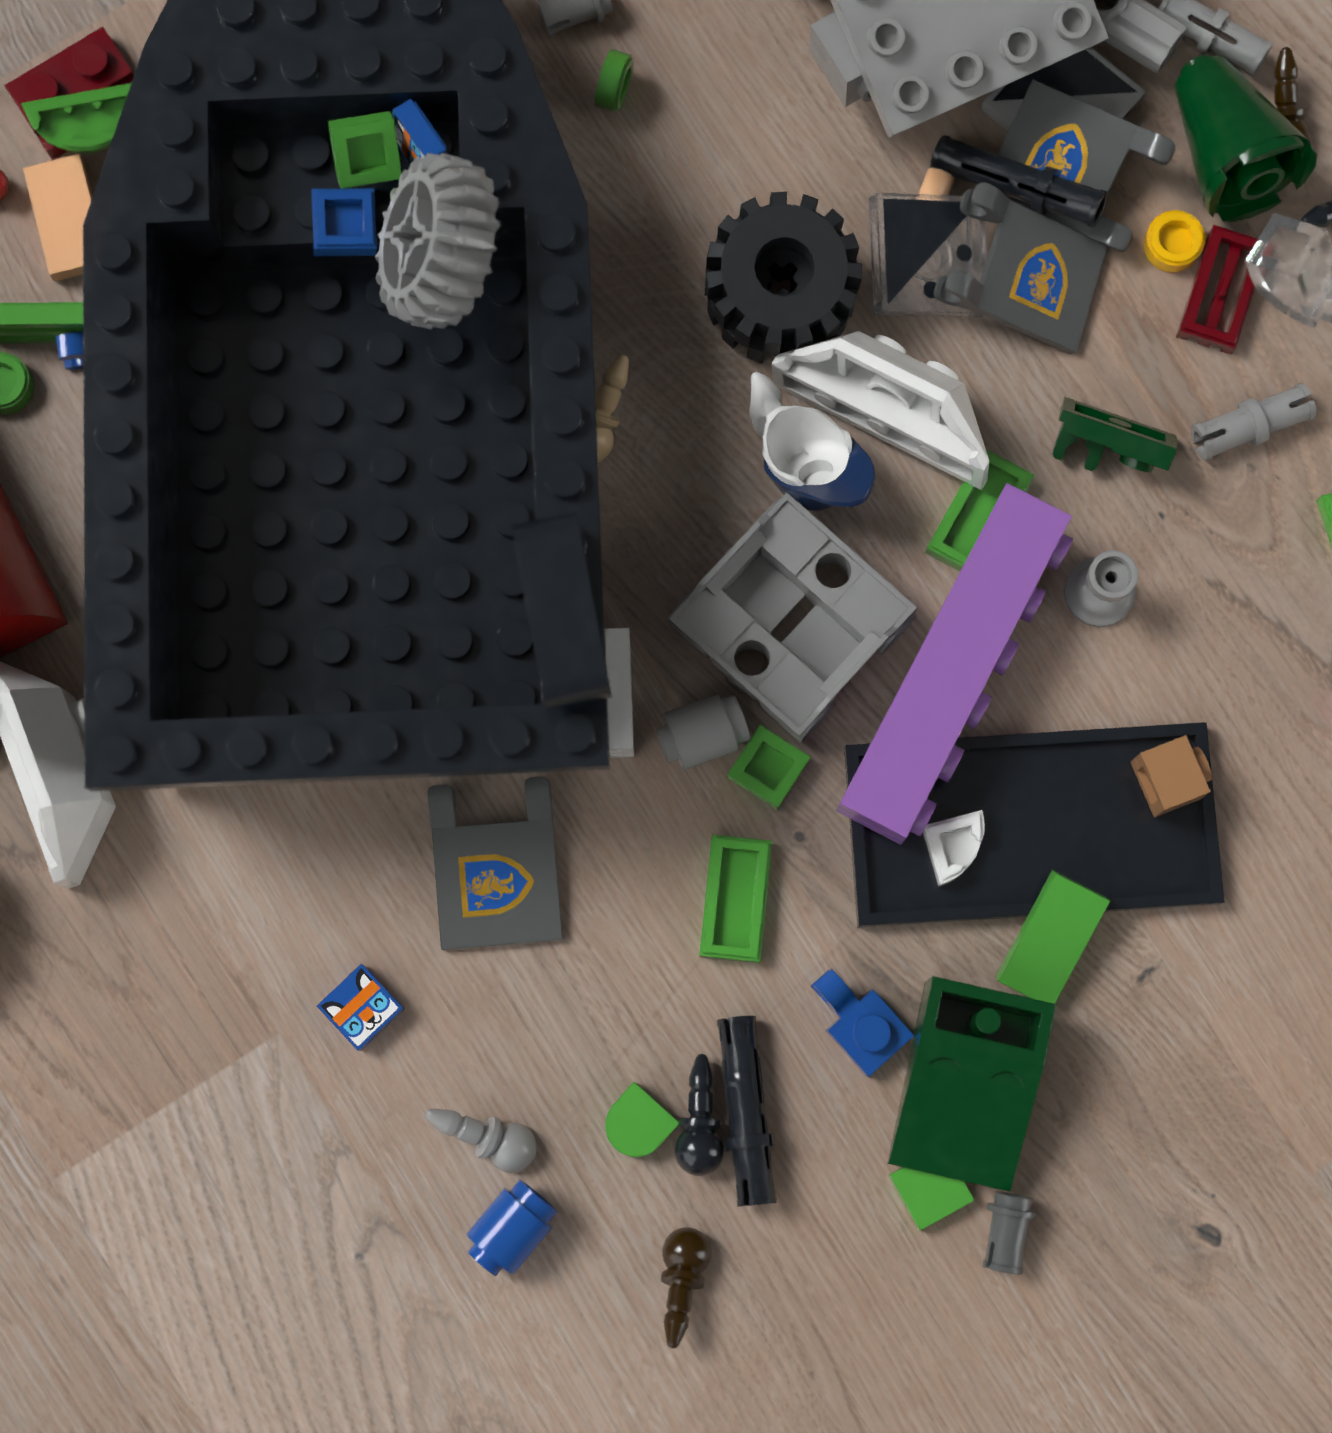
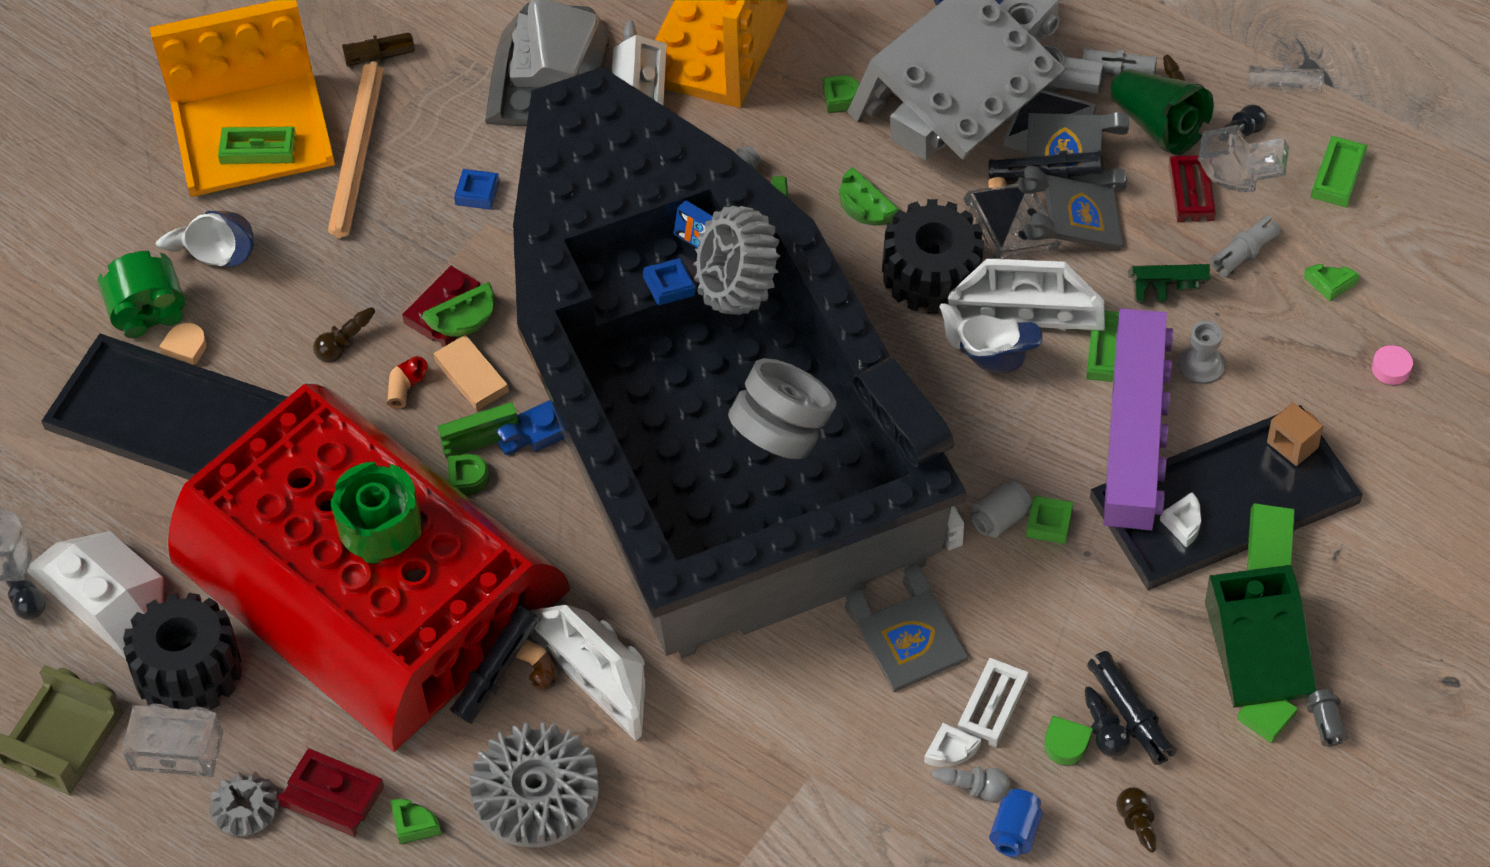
camera: 20 degrees left, 25 degrees down
(360, 1007) = (858, 738): tile -> none
(365, 149) = (666, 238): bright green tile -> none
(386, 540) = (782, 408): none -> light grey wheel
(479, 1069) = (951, 747): none -> white tile
(602, 988) = (980, 730): none -> white tile
(735, 898) = (1065, 597): bright green tile -> none
(736, 132) = (865, 201): none -> bright green tile
(761, 585) = (996, 417): light grey piece -> none
(864, 1027) = (1179, 639): blue plate -> none
(1174, 241) = (1151, 173): yellow tile -> none

